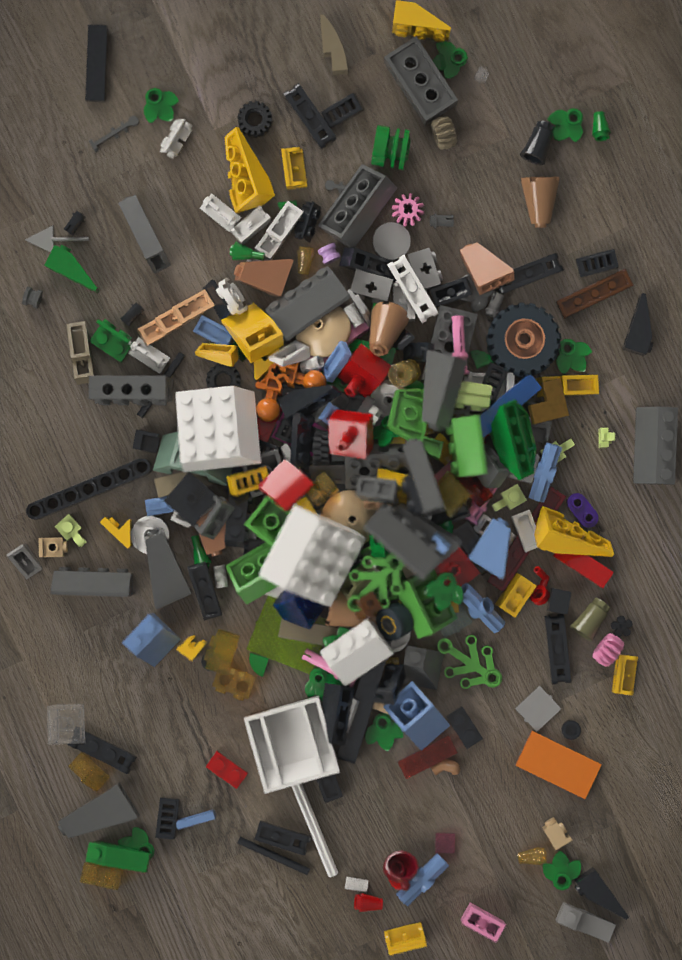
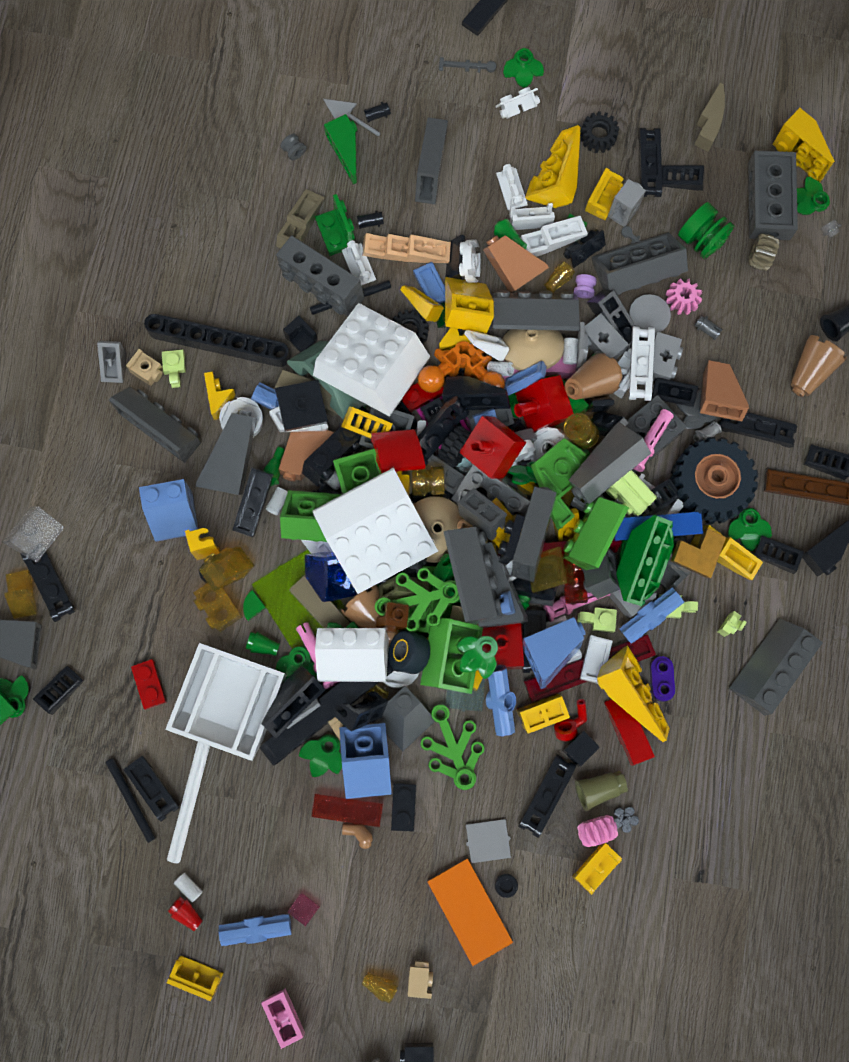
camera: 30 degrees right, 10 degrees down
(196, 819) = (83, 709): medium blue tile -> none
(215, 518) = (311, 437): dark grey hinge -> none
(285, 686) = (261, 644): none -> green cone
(316, 166) = (626, 202): none -> light grey brick
(329, 788) = (232, 771): black plate -> none
(408, 869) = (240, 902): dark red piece -> none
(480, 358) = (659, 472): green tile -> none
(562, 868) = (401, 1021): green plate -> none
(621, 358) = (796, 553): none -> black slope

